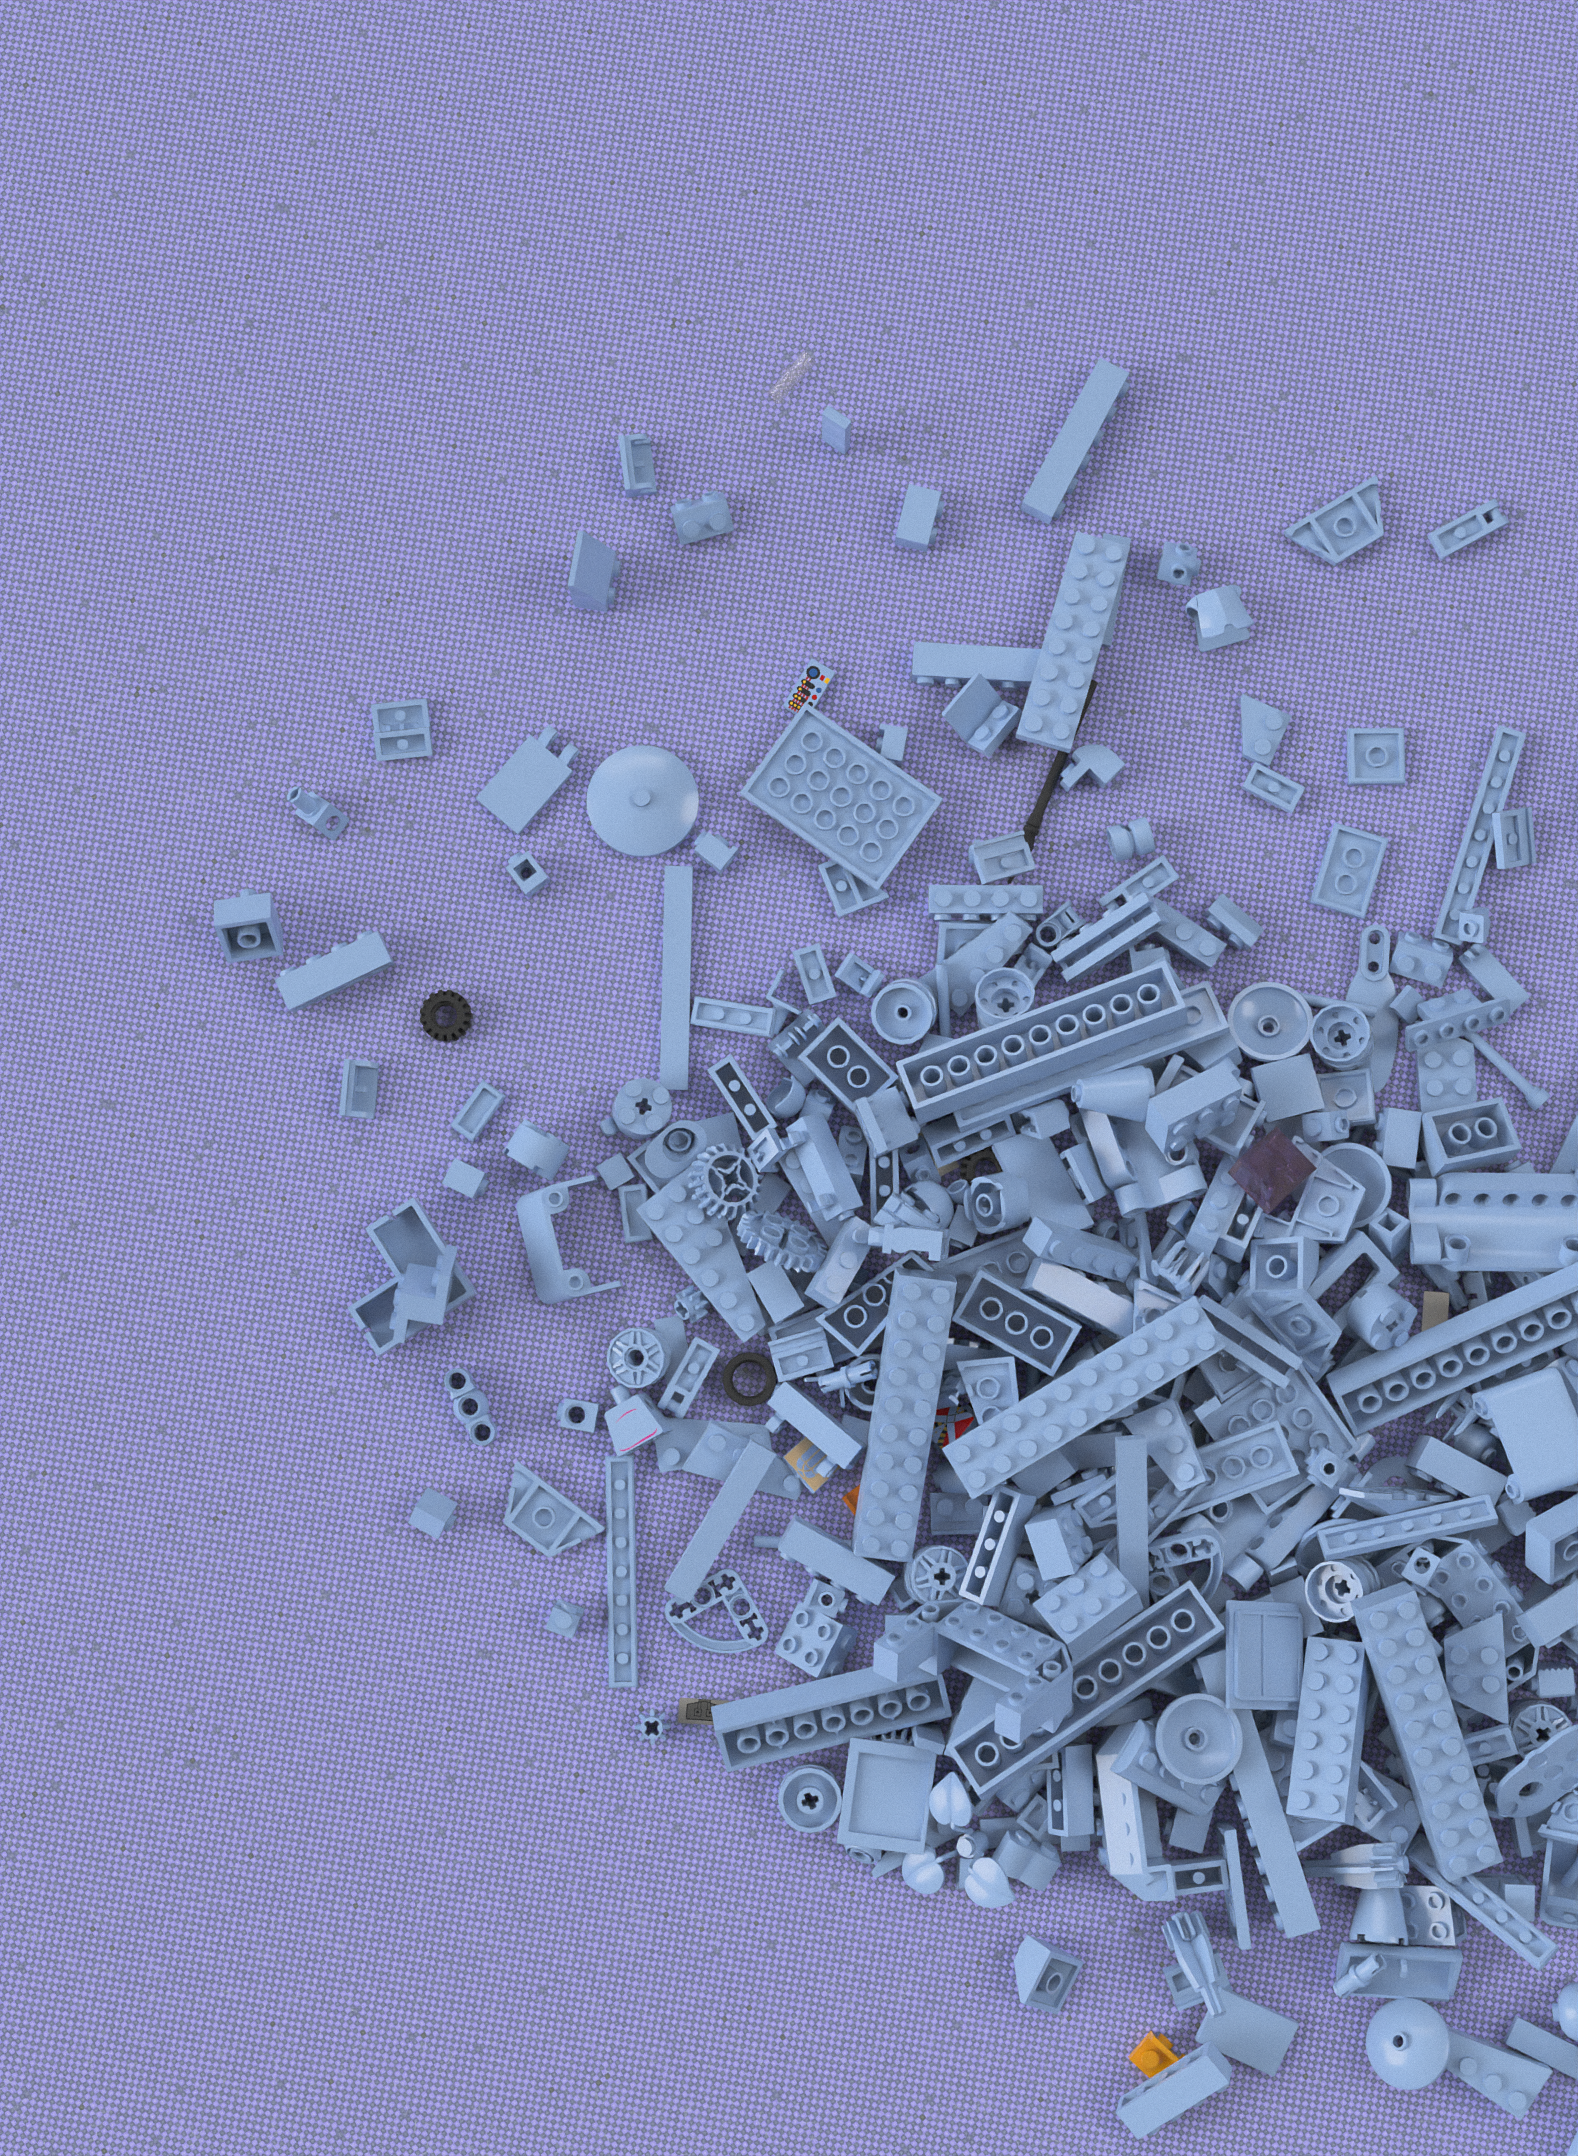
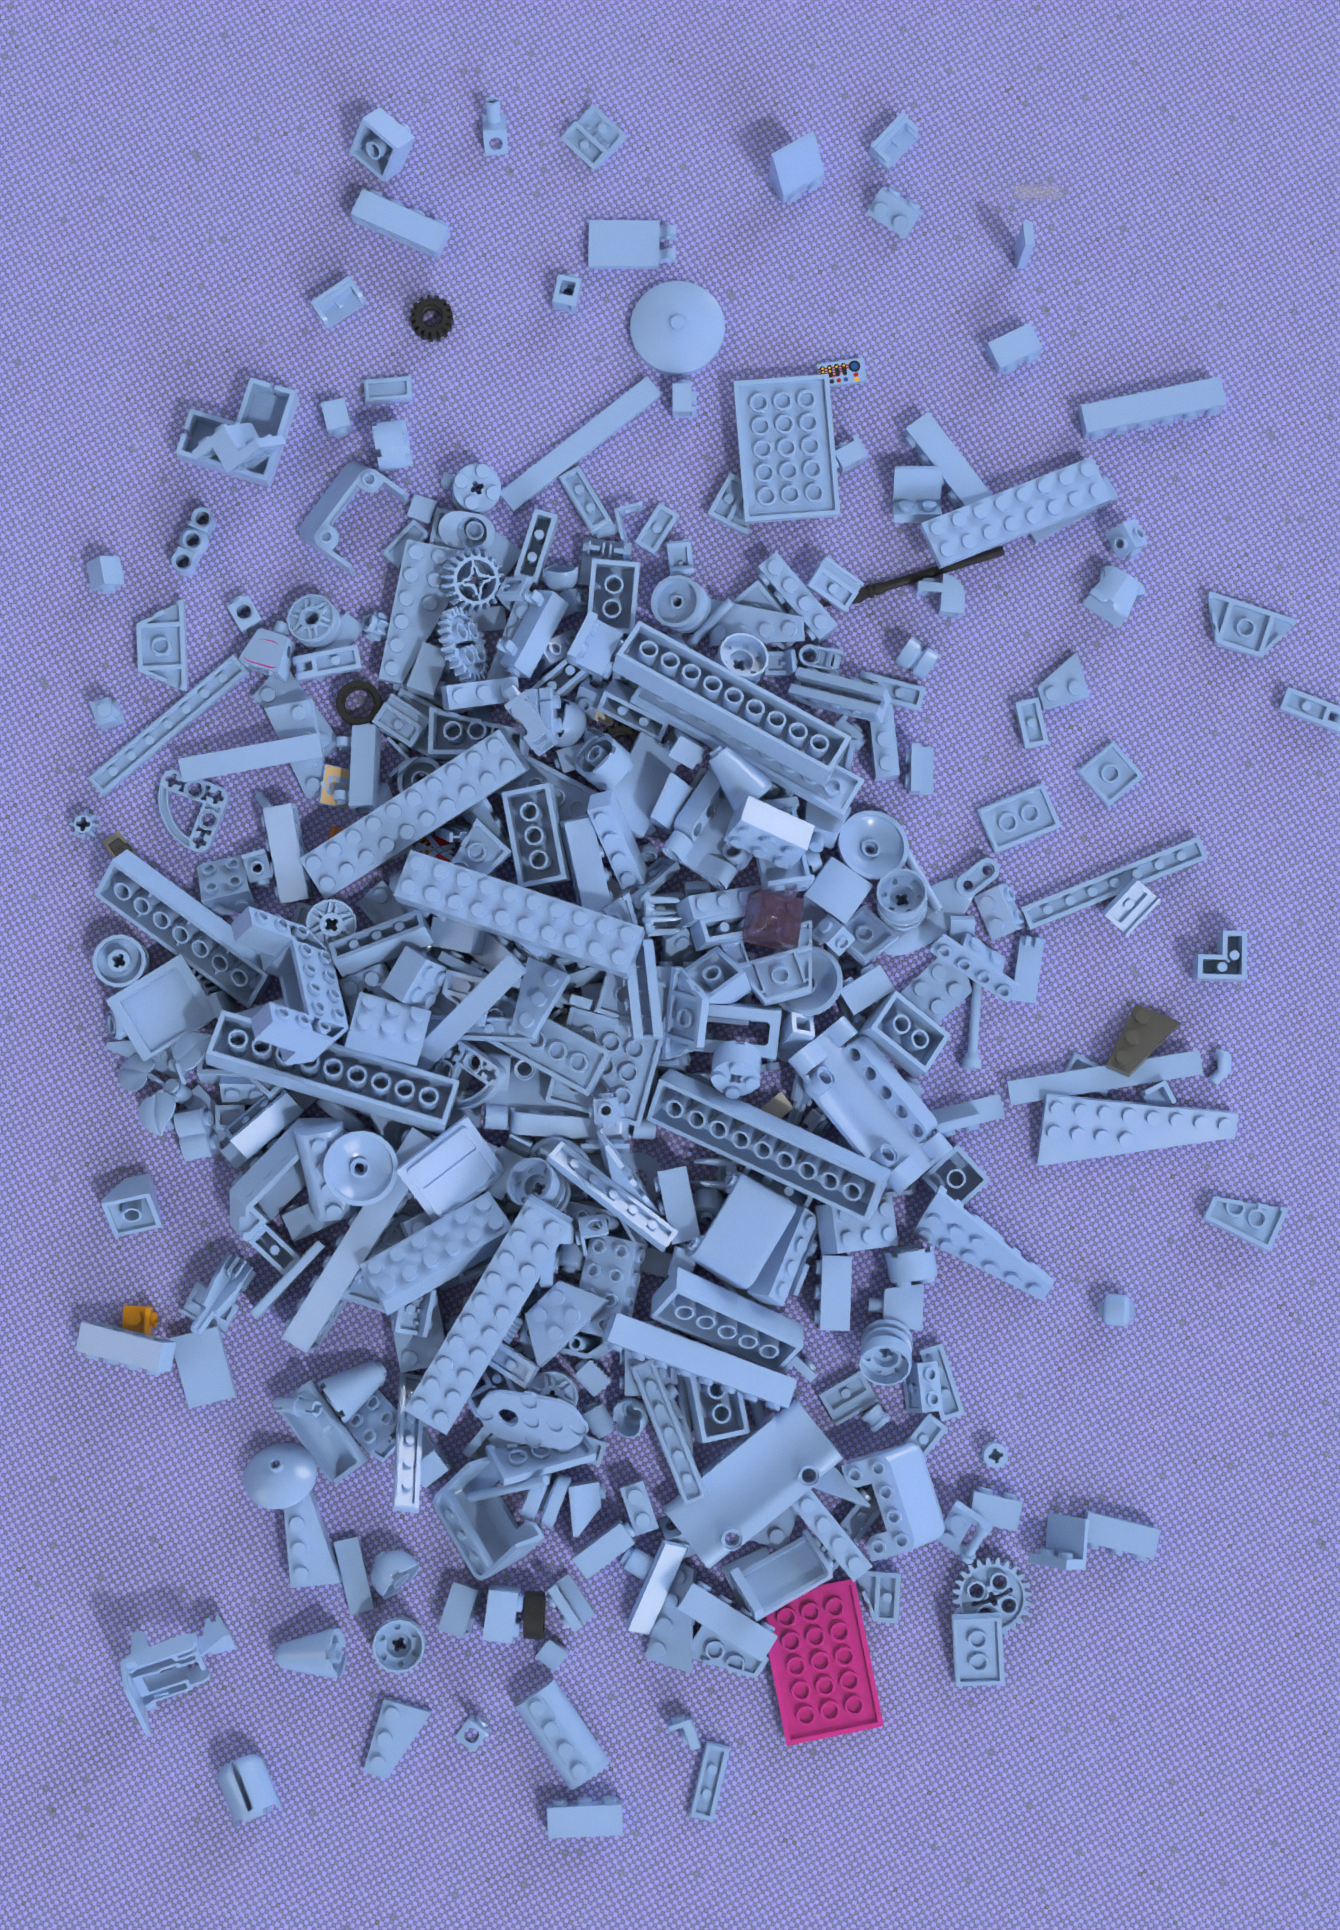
camera: 45 degrees right, 0 degrees up
(848, 1377) = (410, 759): light blue pin -> none
(1363, 1866) = (371, 1352): light blue piece -> none
(1474, 925) = (1051, 926): light blue bracket -> none

